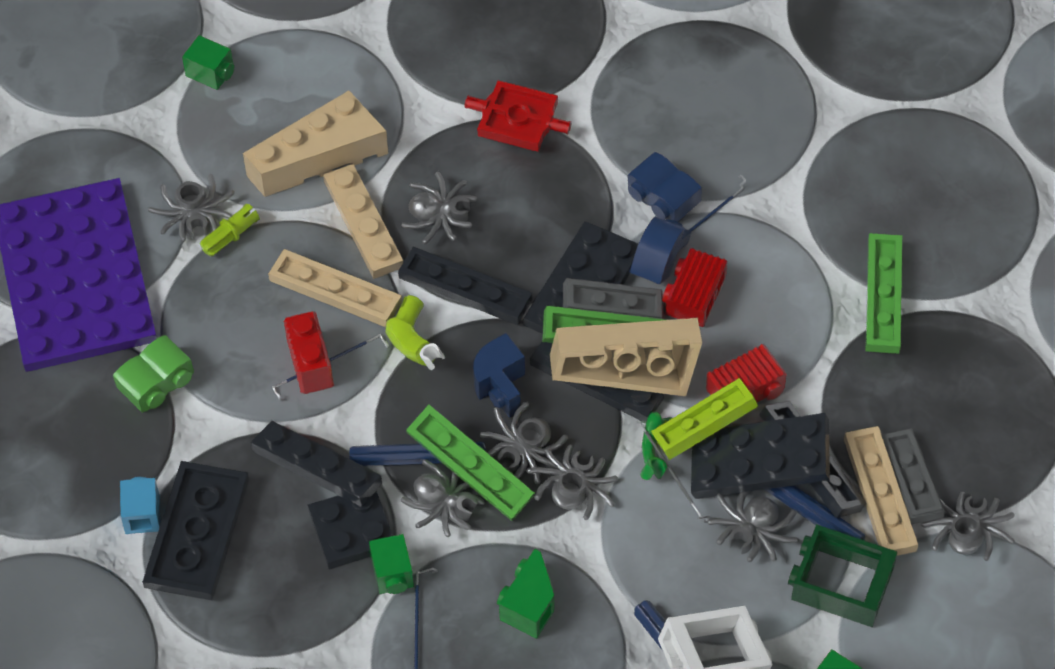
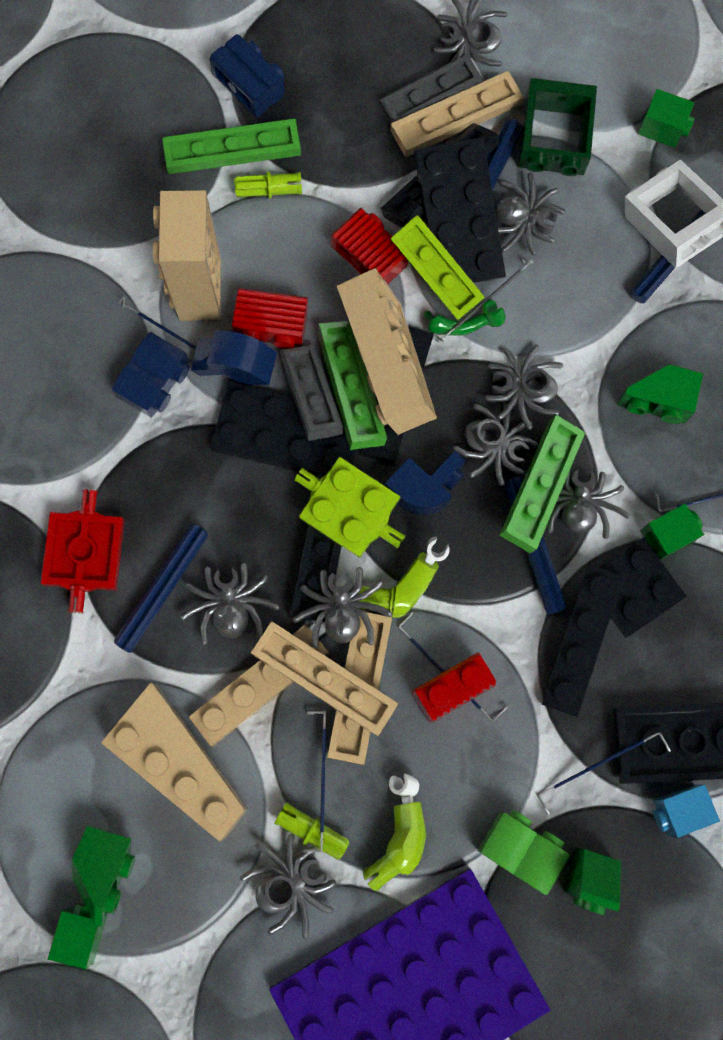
camera: 110 degrees left, 20 degrees up
(110, 411) = (594, 881): none -> green slope
(193, 291) = (409, 839): none -> lime arm
(204, 449) = (598, 764): none -> dark blue piece
(250, 78) = (98, 870): none -> green slope
(267, 243) = (322, 780): none -> dark blue piece
(347, 253) = (324, 678): none -> tan plate
(398, 279) = (342, 608): none -> flat silver animal
(470, 166) = (161, 588): none -> dark blue axle
(492, 303) = (349, 507): none -> lime plate
(749, 208) = (188, 255): none -> tan brick
(835, 316) = (268, 185): none -> lime axle
(958, 318) = (247, 74): none -> dark blue brick

